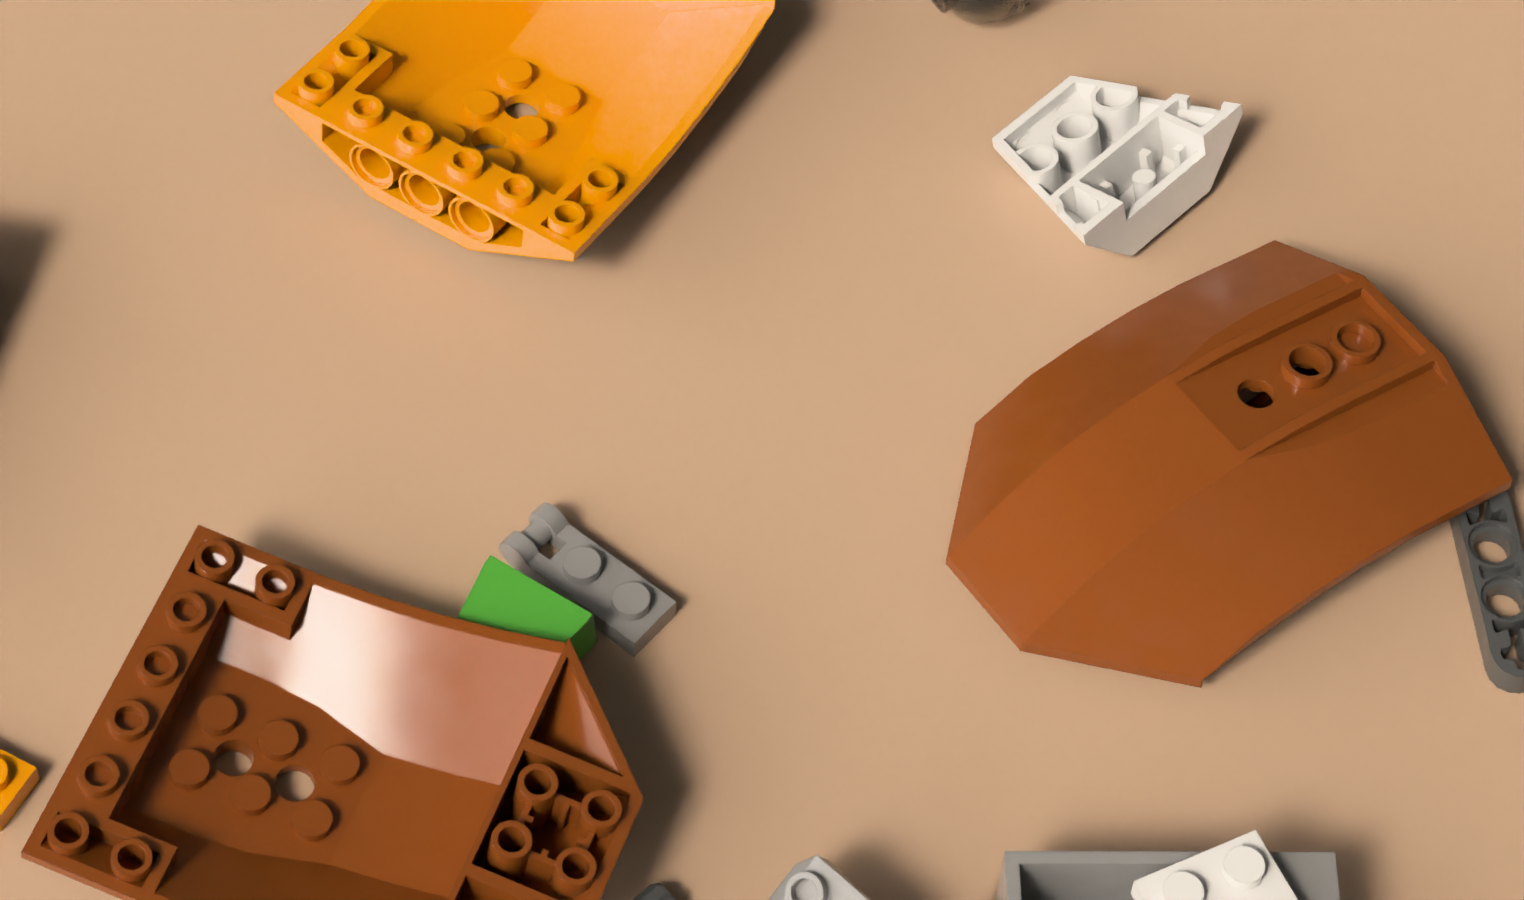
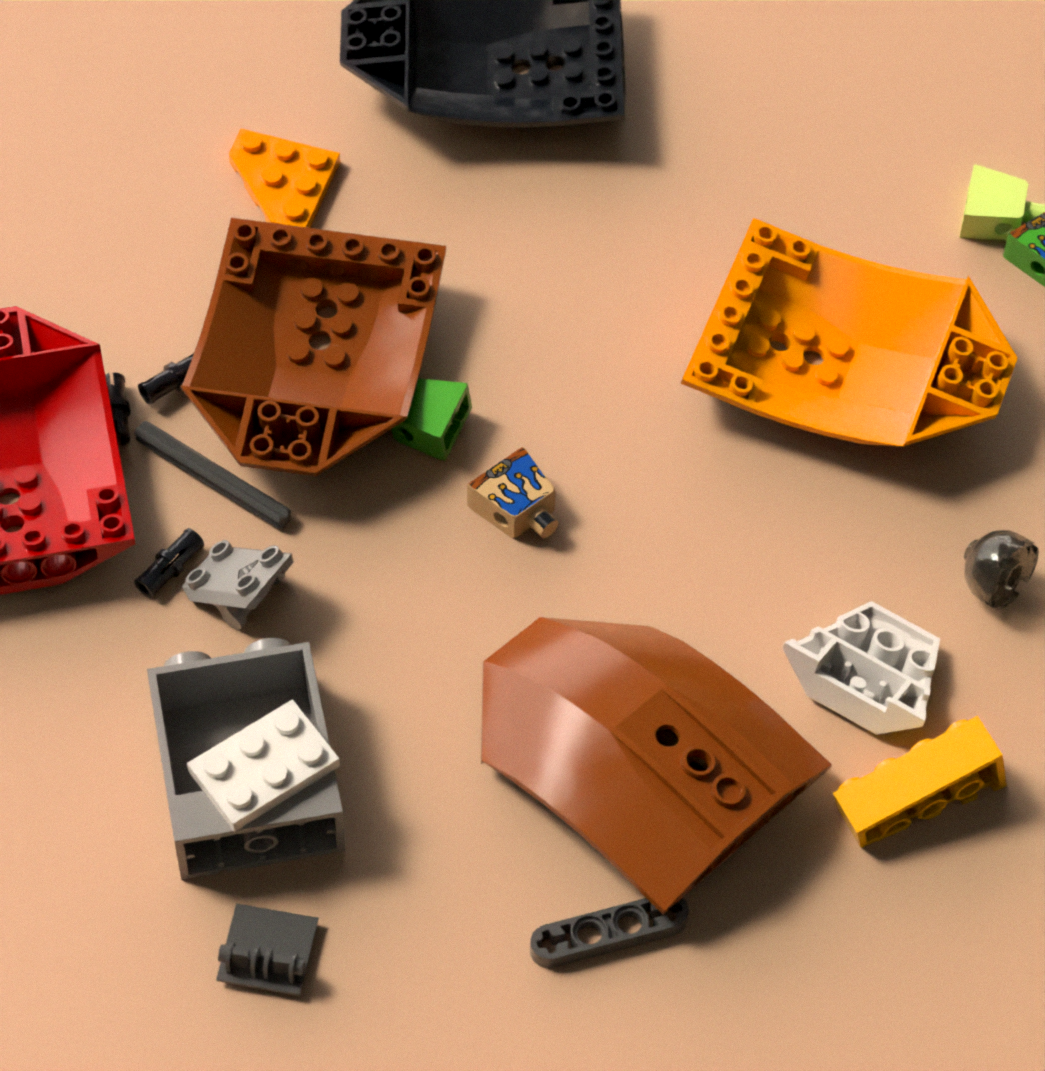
camera: 80 degrees right, 0 degrees up
(620, 599) = (485, 446): light grey plate -> none
(705, 545) = (515, 496): none -> torso
(1319, 142) = (921, 782): none -> yellow wedge

